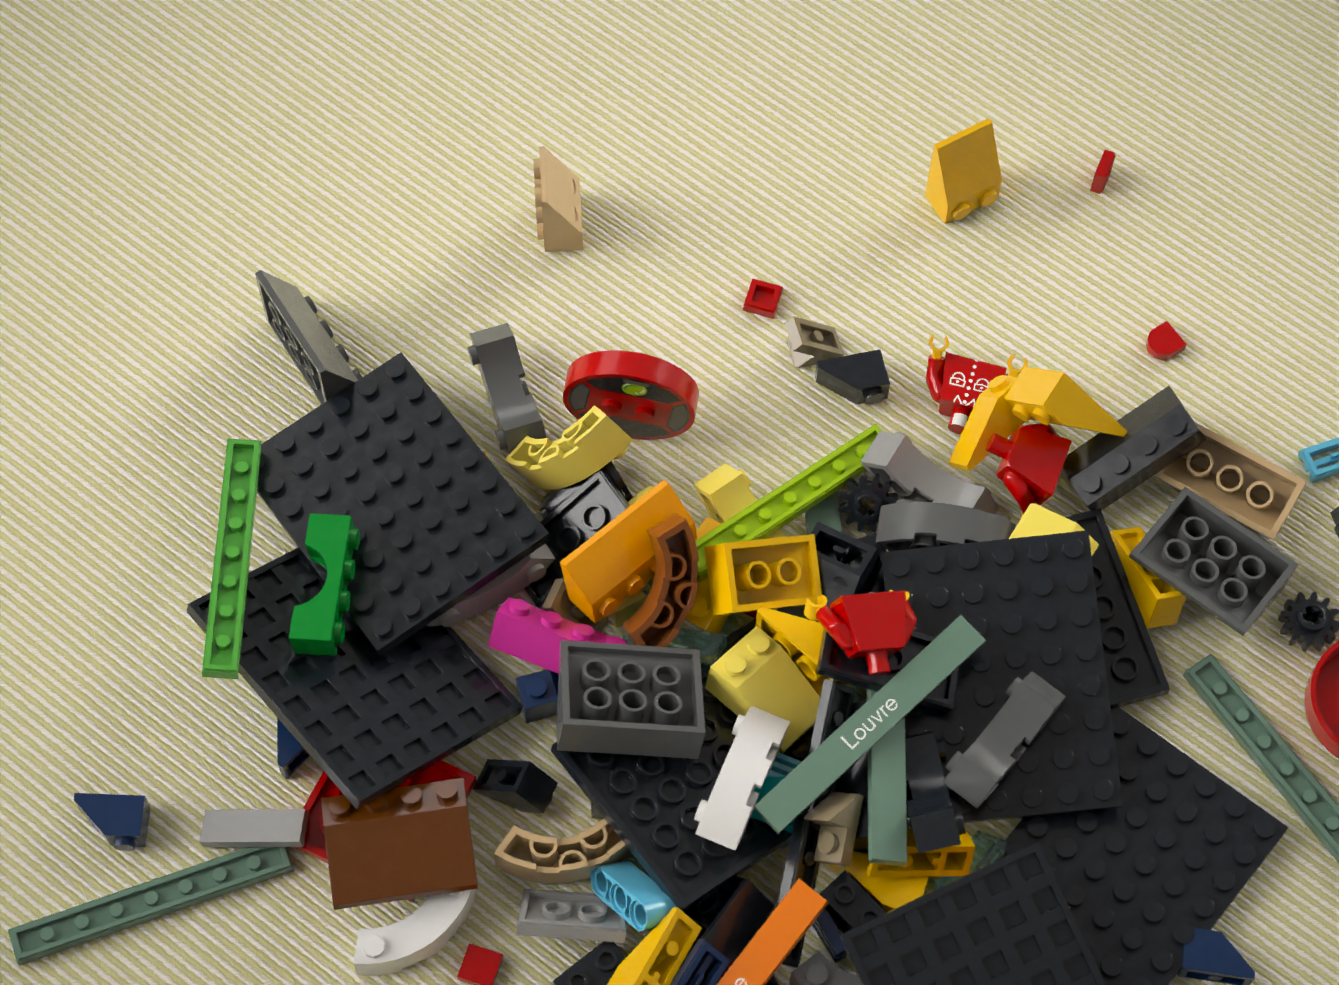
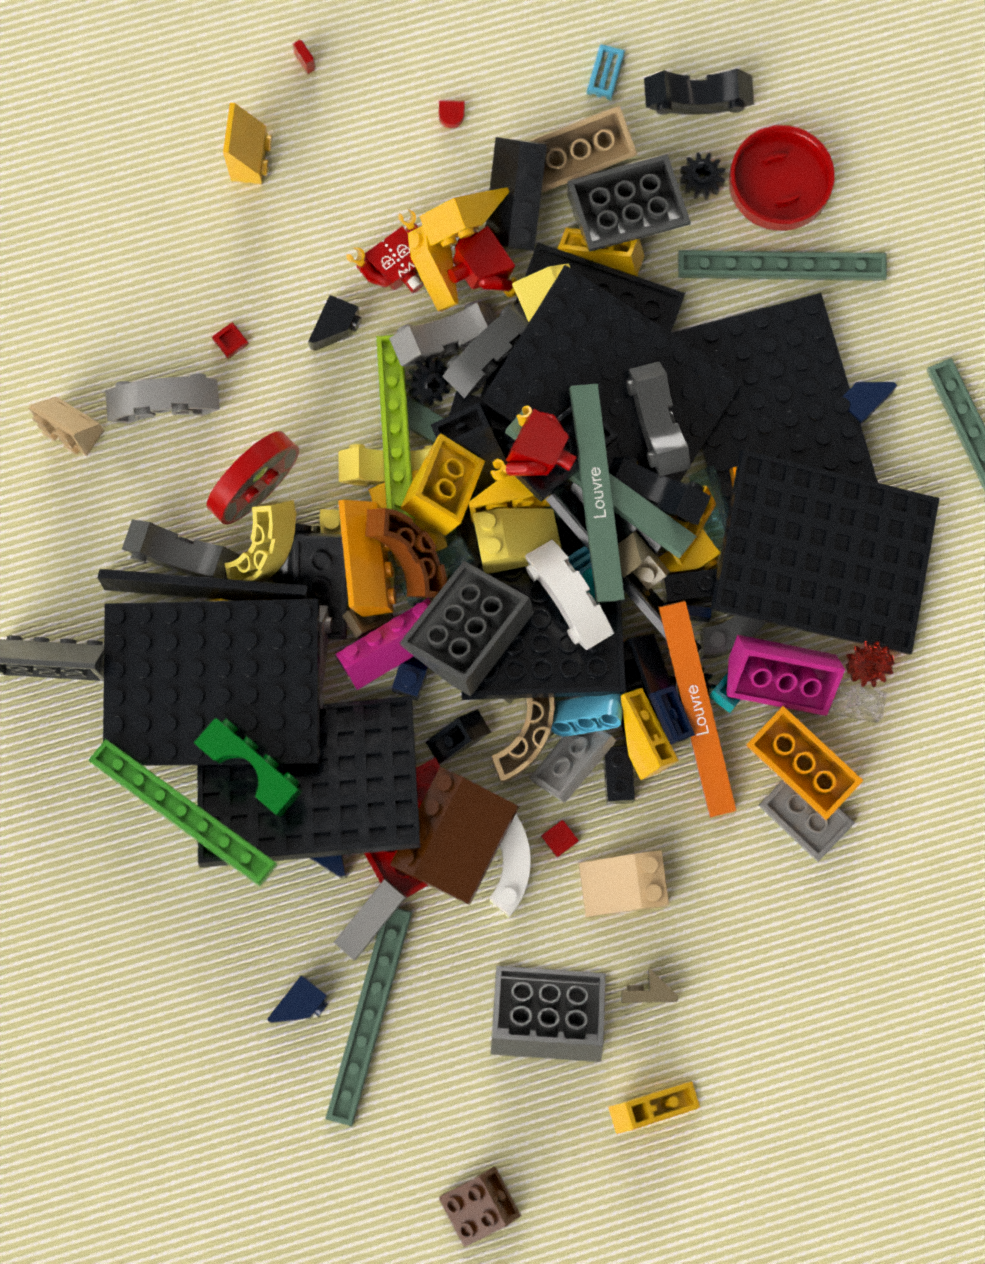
camera: 55 degrees left, 15 degrees up
(485, 427) = (199, 586): none -> black tile
(669, 286) = (144, 398): none -> light grey brick
(811, 342) = (288, 333): dark tan slope -> none

